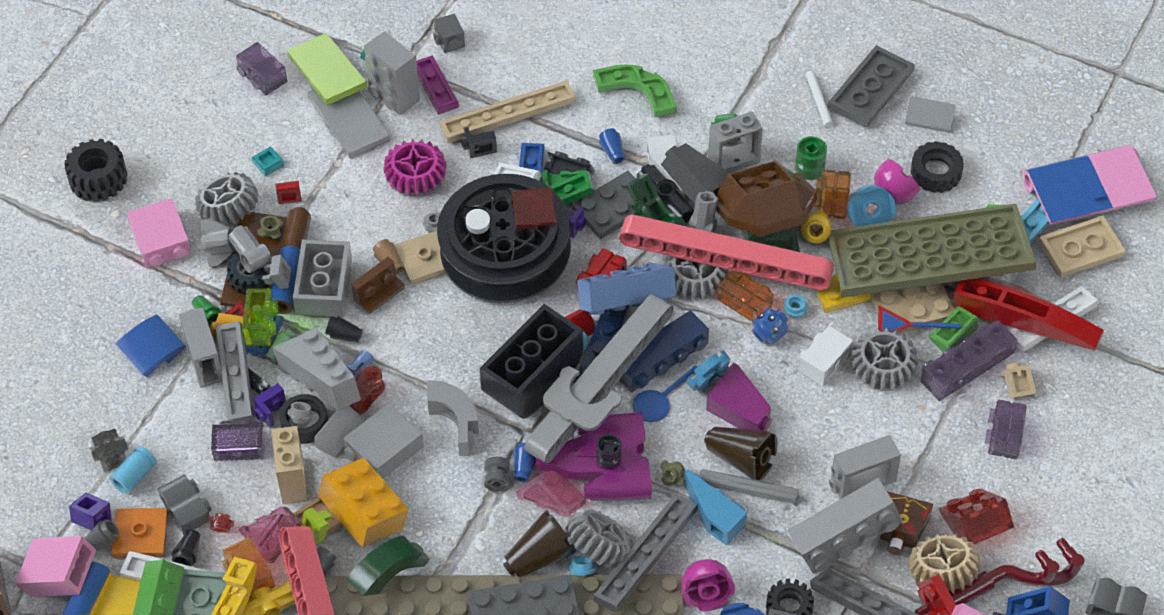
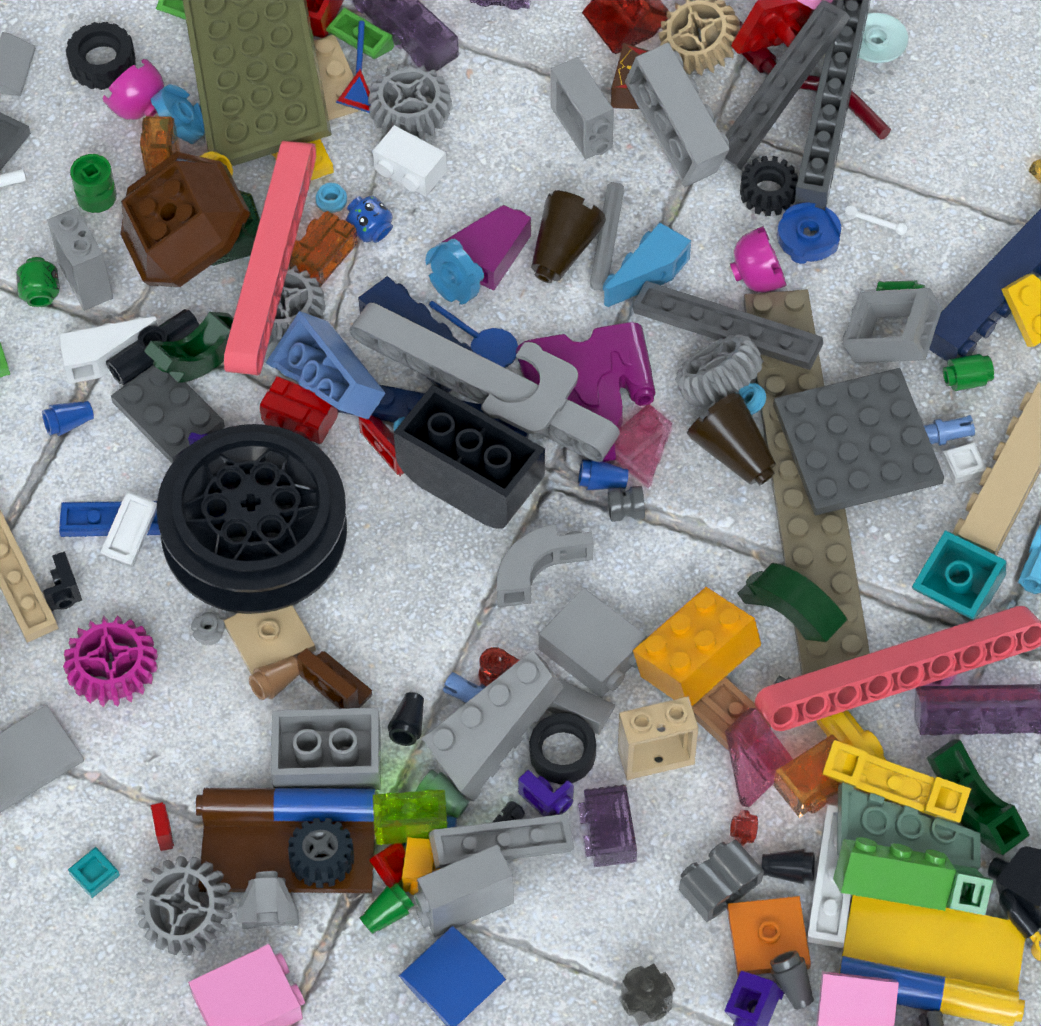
camera: 95 degrees left, 5 degrees up
(133, 469) = (674, 958): medium azure piece -> none
(251, 252) = (306, 832): light grey piece -> none
(270, 222) = (229, 831): olive plate -> none
(278, 272) = (335, 795): light grey tile -> none
(300, 412) = (565, 742): light grey plate -> none
(317, 522) = (743, 691): lime tile -> none
(477, 221) = (254, 527): white tile -> none
(533, 207) = (227, 460): clear red piece -> none
(561, 162) = (110, 455): black hinge -> none
(569, 185) = (144, 461): green wing -> none
(608, 451) = (599, 360): black wheel -> none
(678, 473) = (601, 310): olive plate -> none
(693, 171) = (137, 298): dark grey slope -> none
(704, 212) = (201, 293): light grey piece -> none

